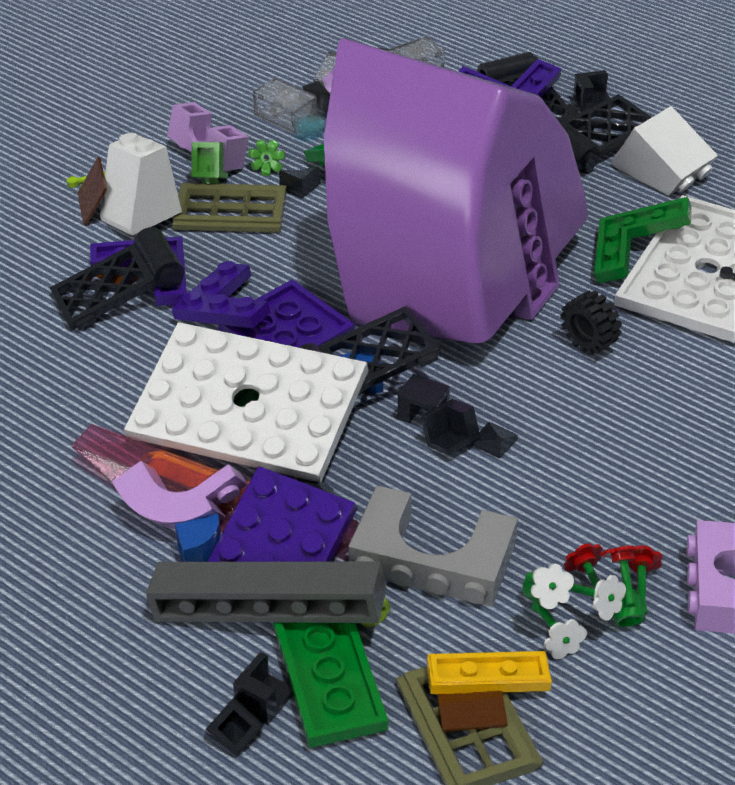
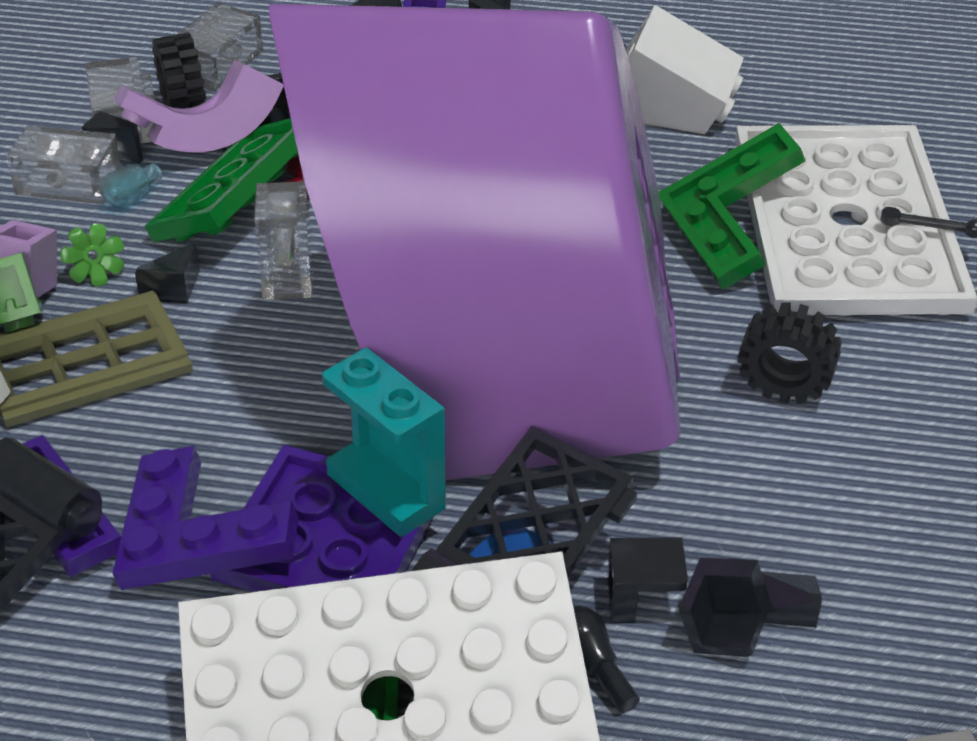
camera: 30 degrees left, 0 degrees up
(327, 304) = (396, 445): none -> teal panel
(372, 417) = (601, 659): none -> black piece

